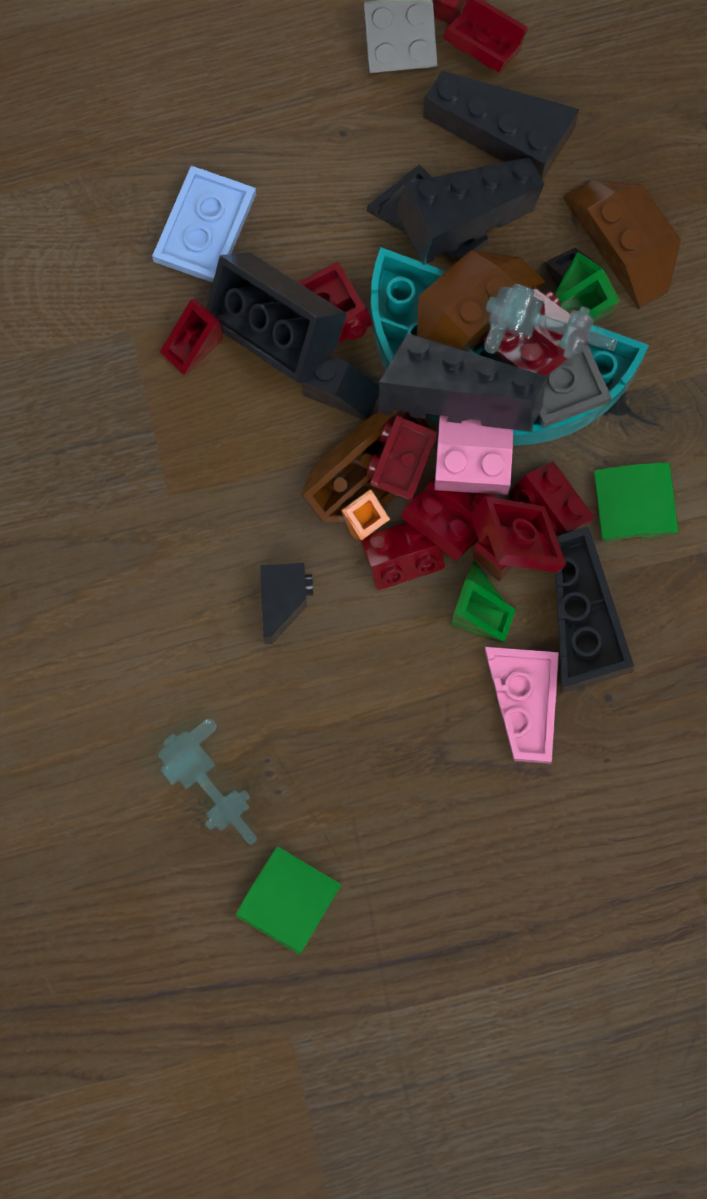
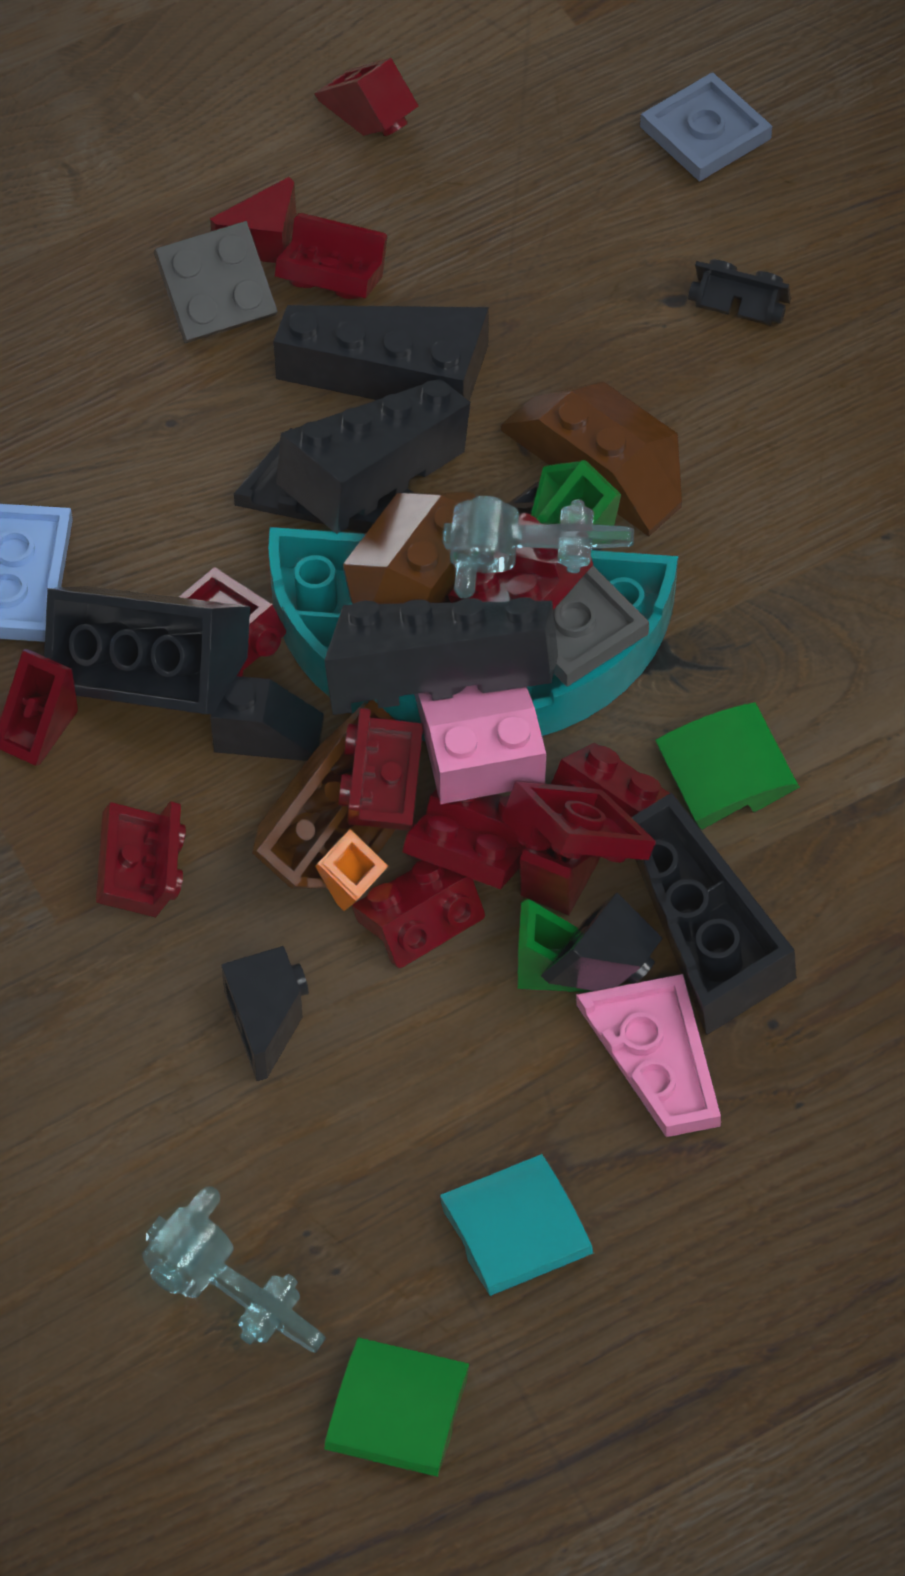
camera: 15 degrees left, 20 degrees down
(231, 466) = (140, 858): none -> dark red bracket
(399, 797) = (516, 1224): none -> teal slope
(511, 623) = (605, 949): none -> black slope

